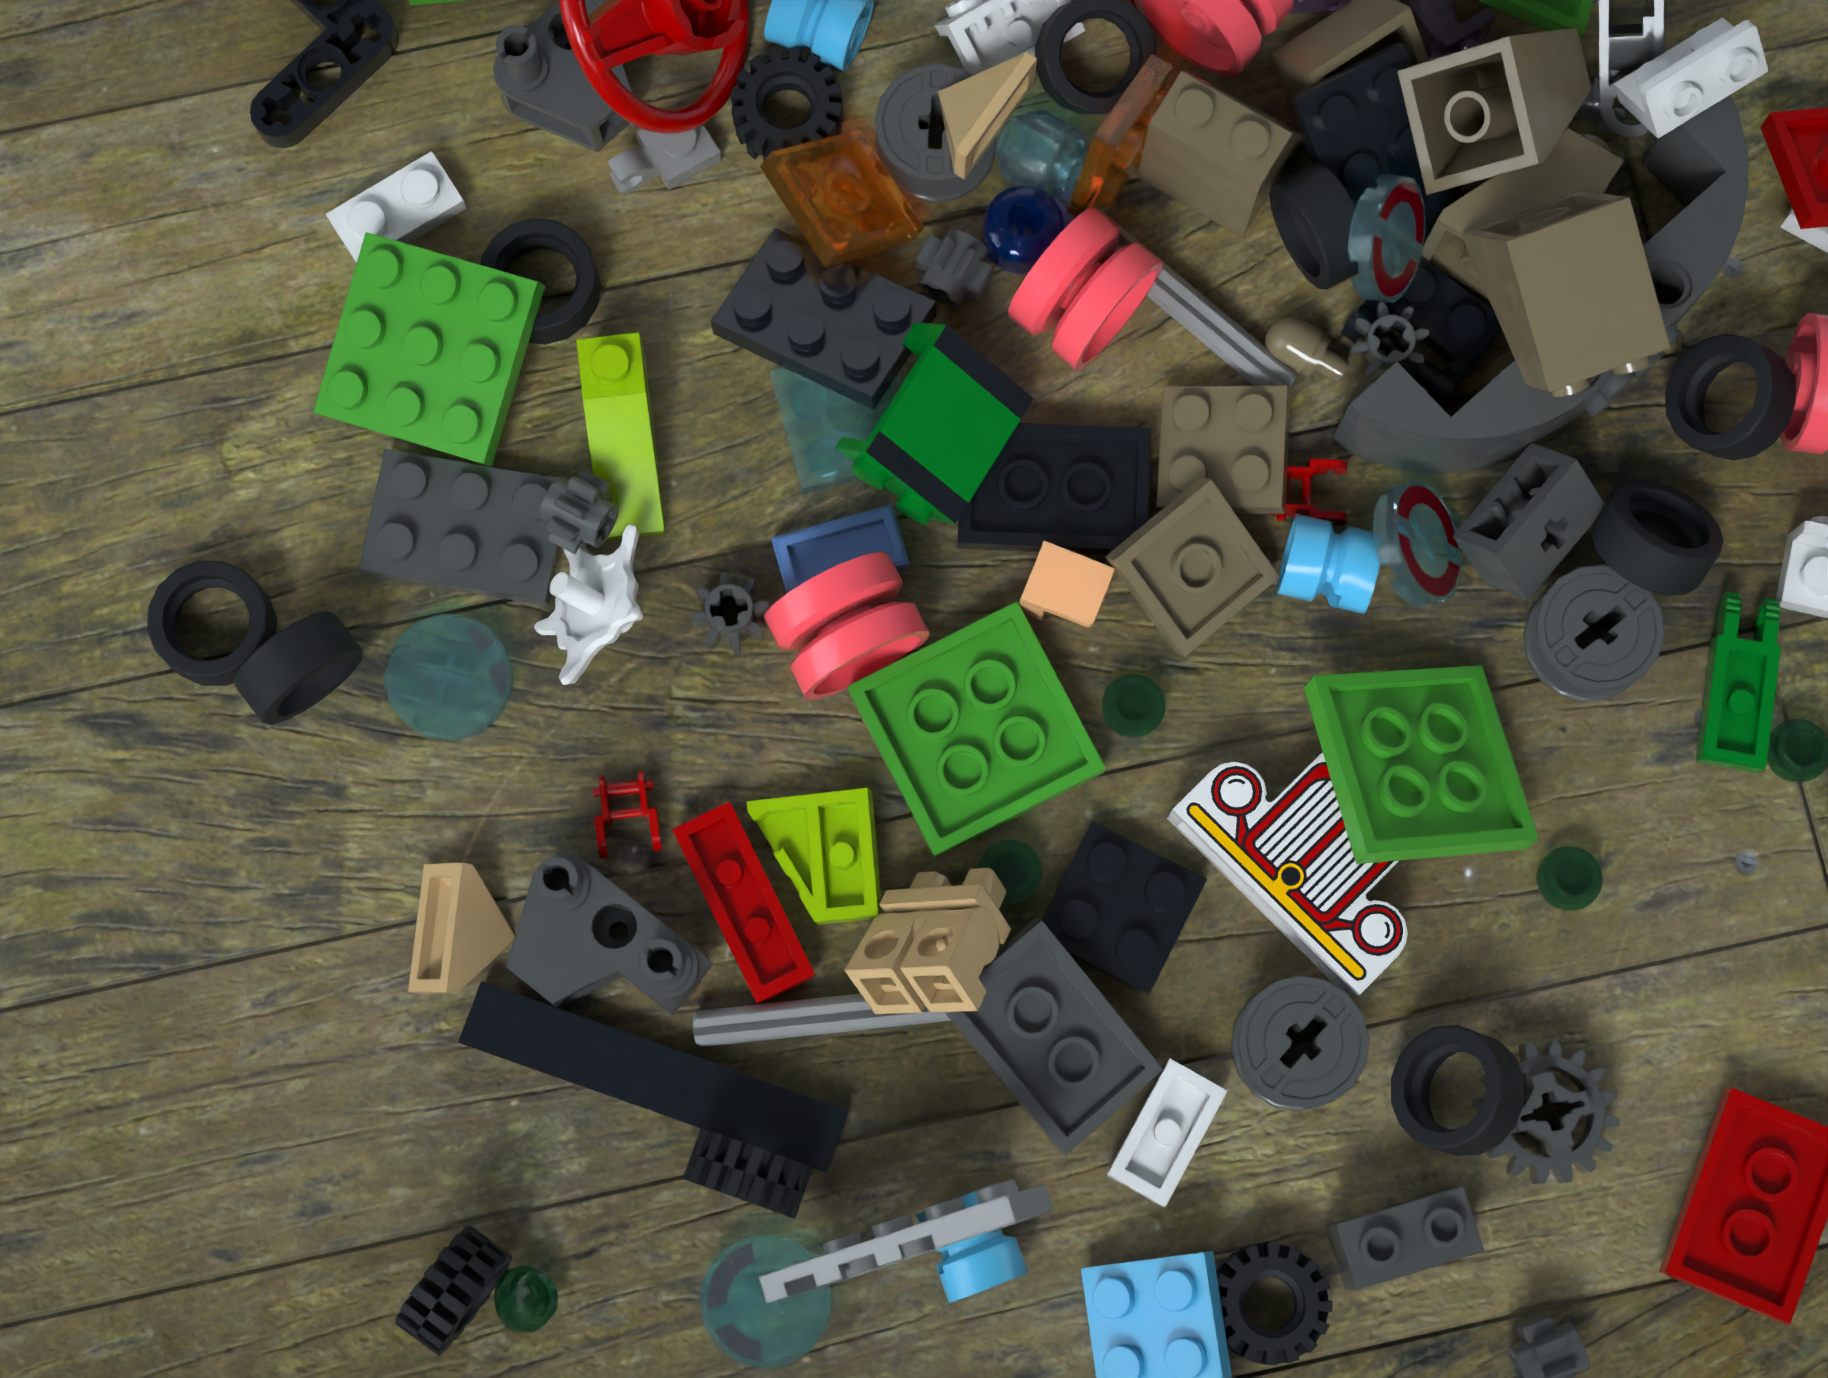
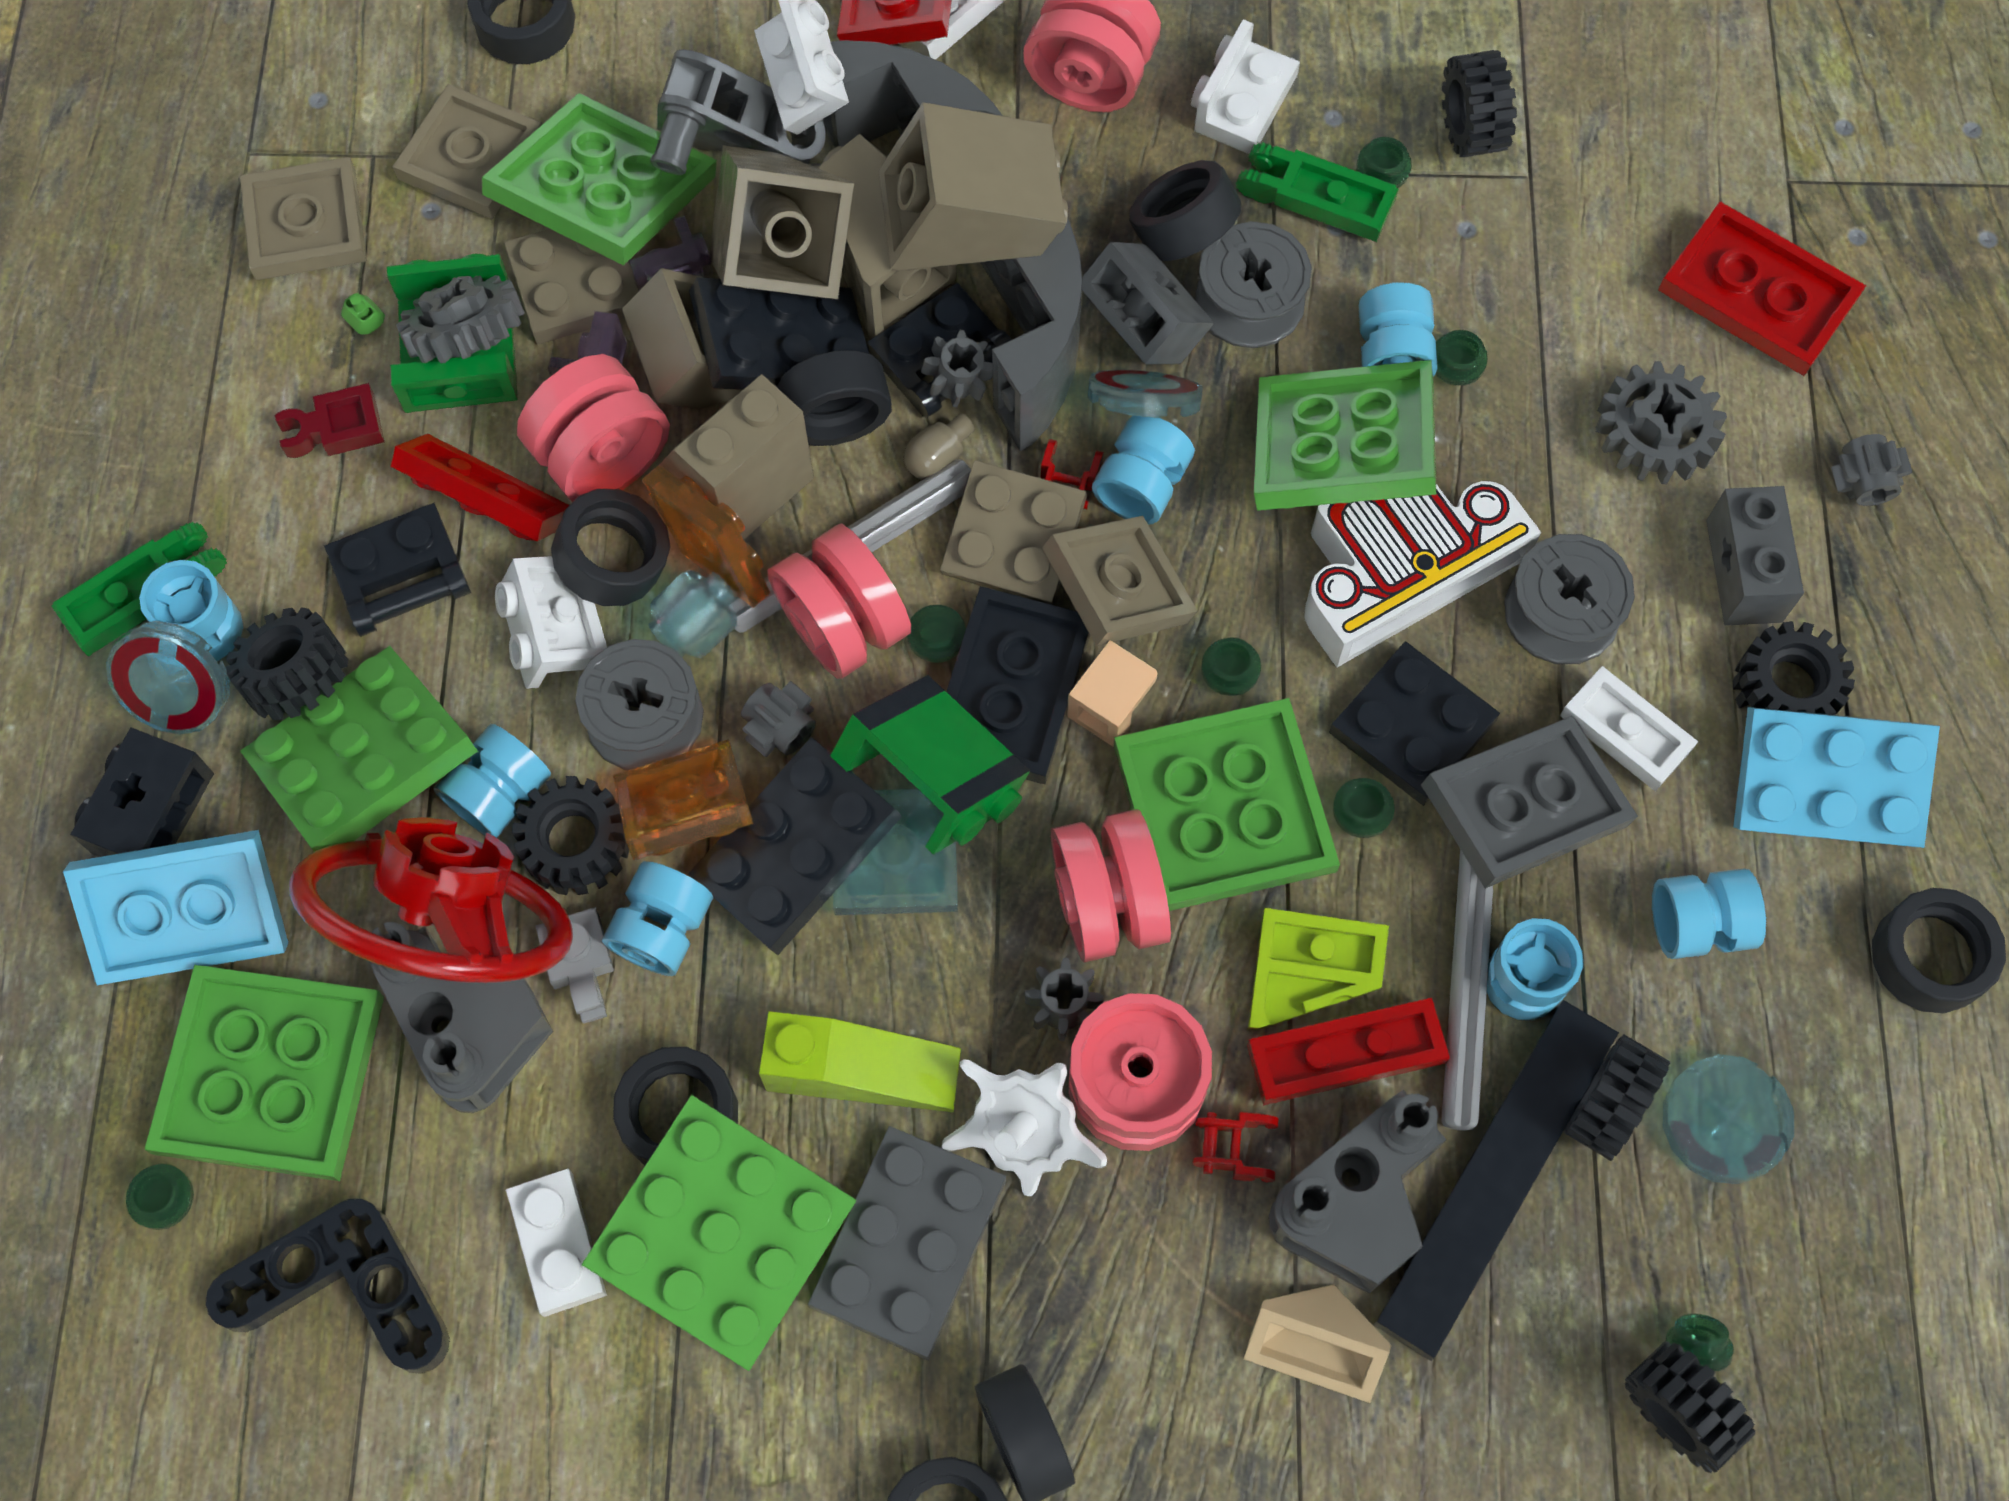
camera: 75 degrees left, 10 degrees down
(448, 677) = (1058, 1293): clear light blue tile -> none
(579, 511) = (932, 1113): dark grey gear -> none
(639, 670) = (1147, 1034): none -> coral wheel
(739, 211) = (667, 899): none -> medium azure wheel
(823, 546) = (1023, 890): medium blue tile -> none
(865, 1068) = (1542, 958): none -> medium azure wheel
(901, 1240) = (1718, 949): light grey wing -> none
(931, 945) = (1432, 876): tan hips -> none
(981, 106) = (640, 648): tan slope -> none
(1026, 210) = (760, 647): clear blue head -> none
(1092, 399) = (936, 633): none -> clear green plate
(1387, 238) = (868, 338): clear light blue tile -> none
(1414, 1076) = (1645, 522): black tyre -> none
(1580, 799) = (1397, 325): none -> medium azure wheel
(1690, 384) = (1112, 103): black tyre -> none

